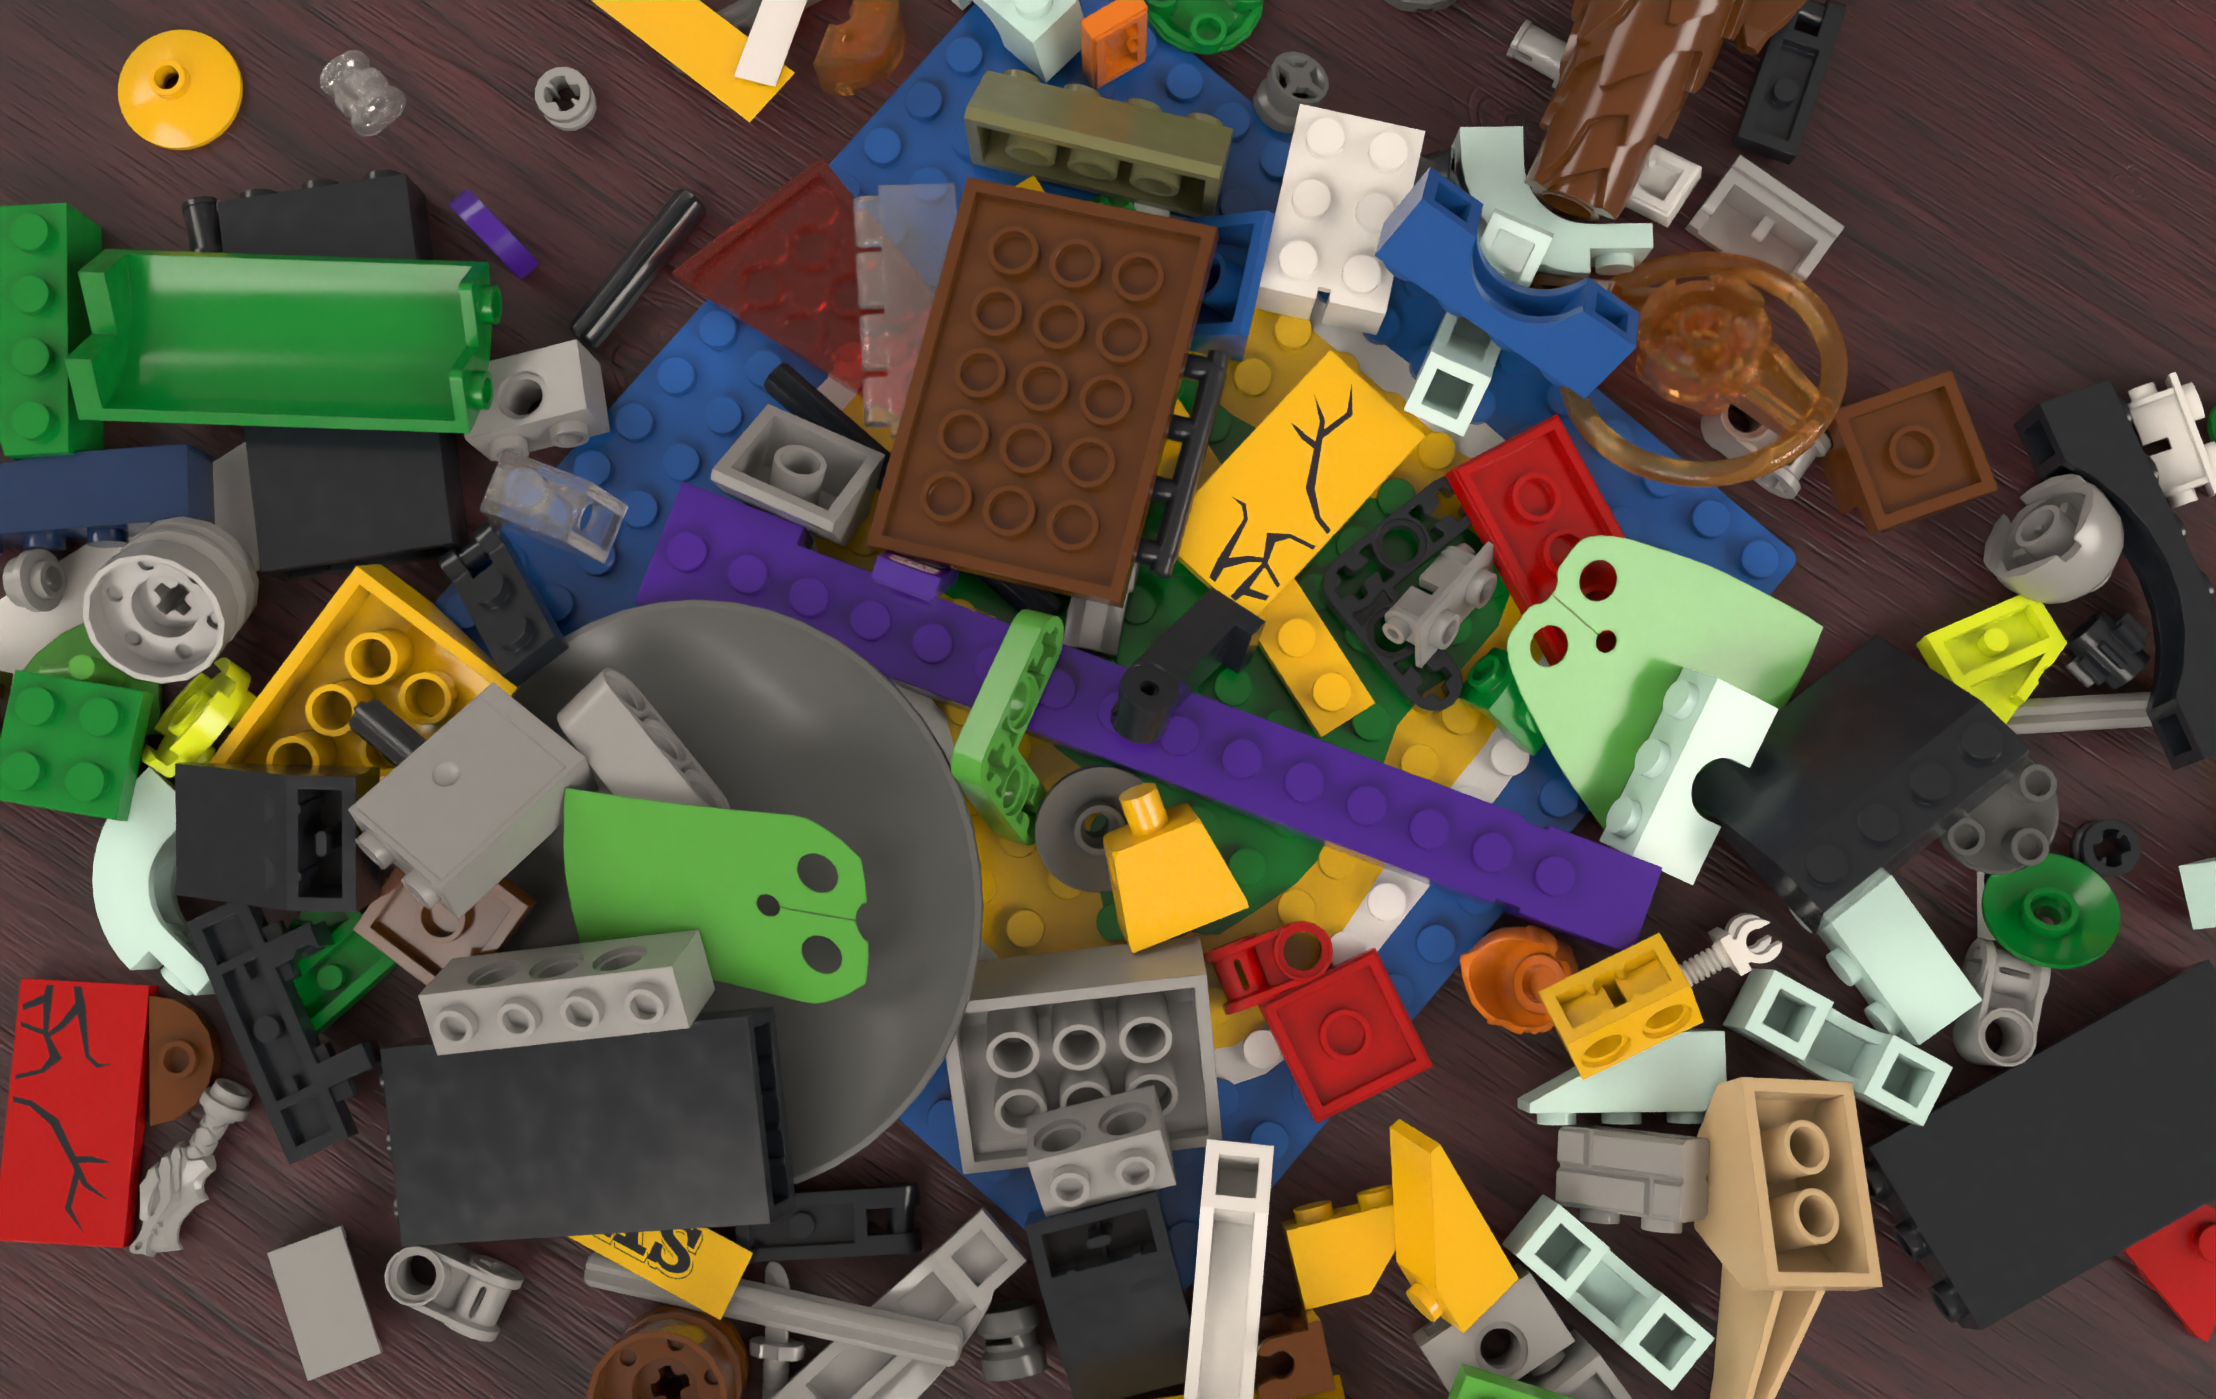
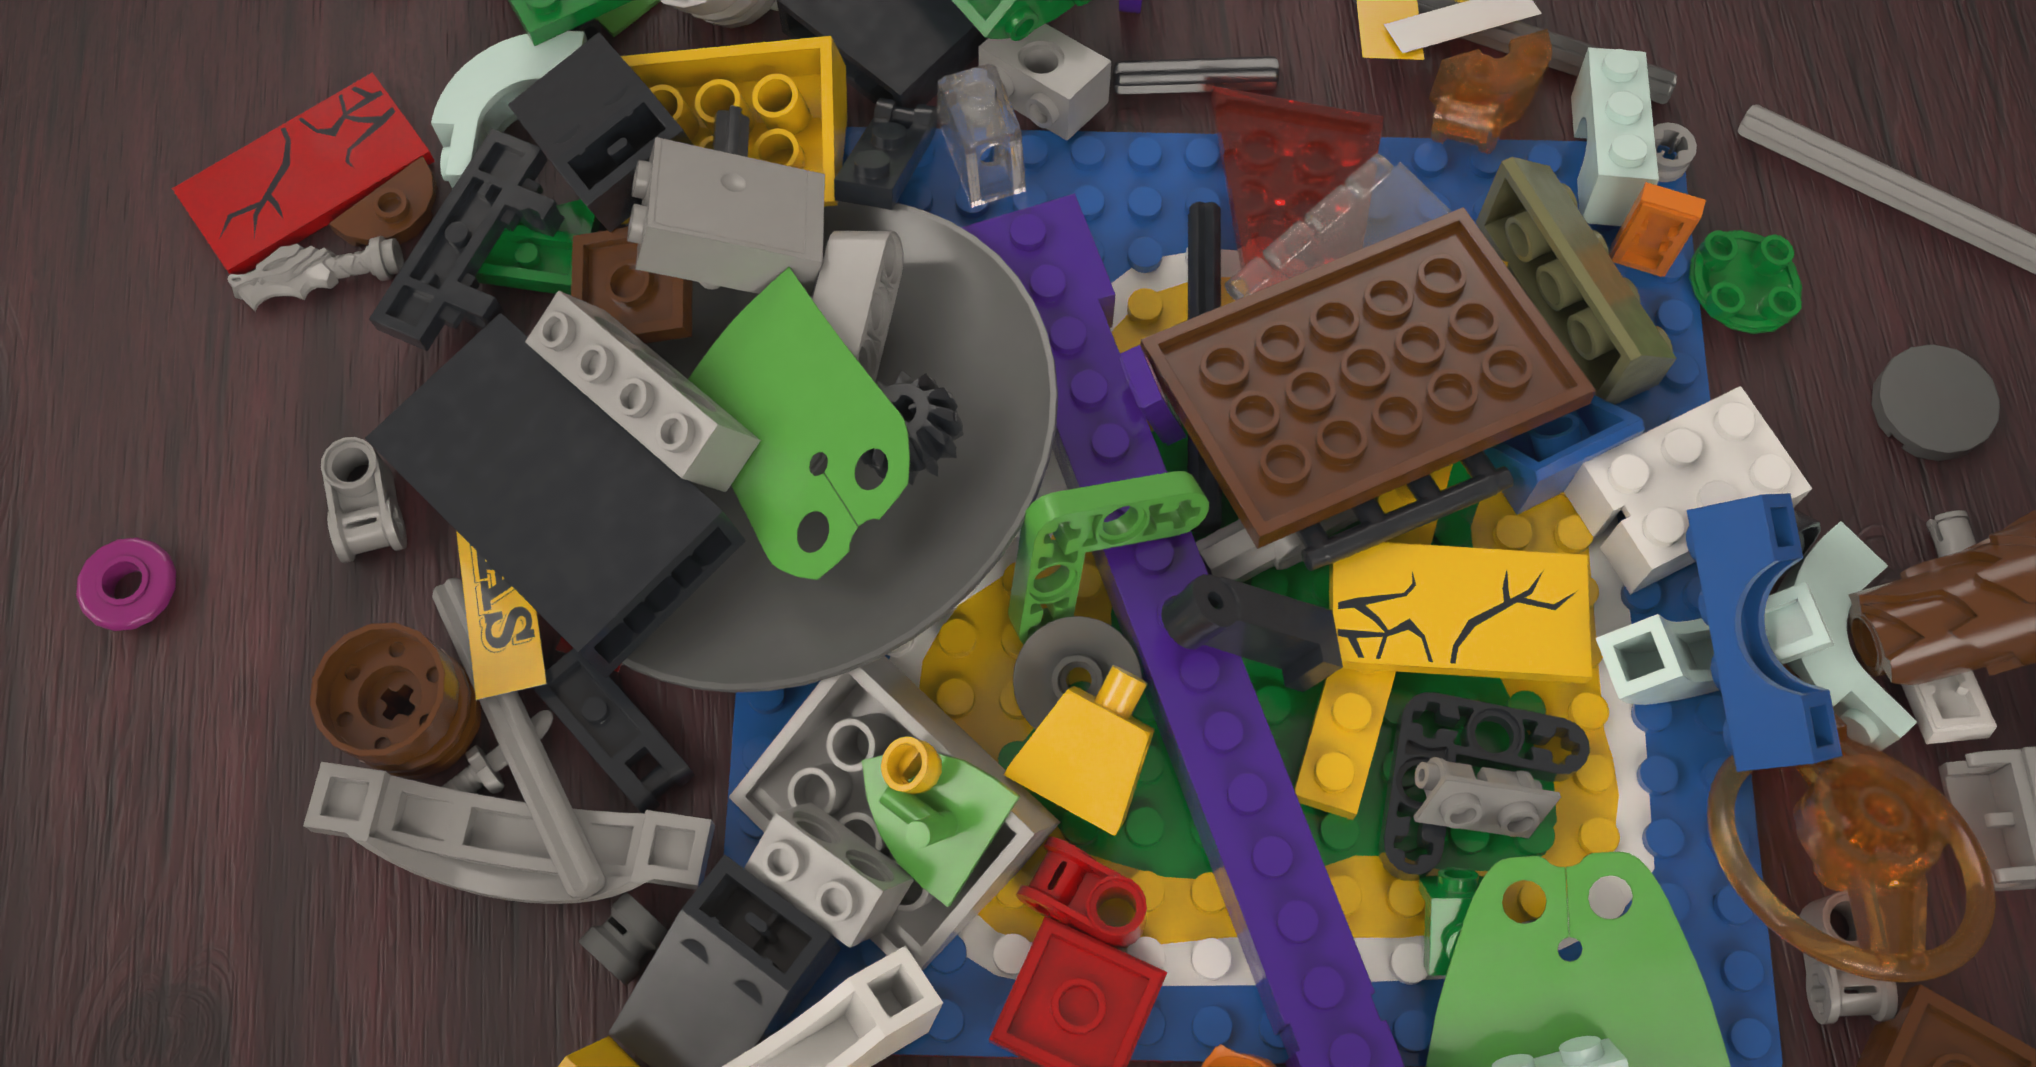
camera: 50 degrees right, 15 degrees down
(200, 717) = (660, 36): neon yellow plate -> none
(324, 1302) = (282, 424): light grey hinge -> none
(801, 474) = (1148, 263): light grey slope -> none
(802, 780) = (930, 424): none -> black gear
(871, 109) = (1467, 122): none -> clear orange bush
(1068, 1030) = (911, 758): none -> yellow hinge
(1123, 1034) = (943, 830): none -> bright green shield
(1289, 82) = (1753, 374): dark grey wheel -> none
(1535, 506) = (1613, 800): red tile -> none

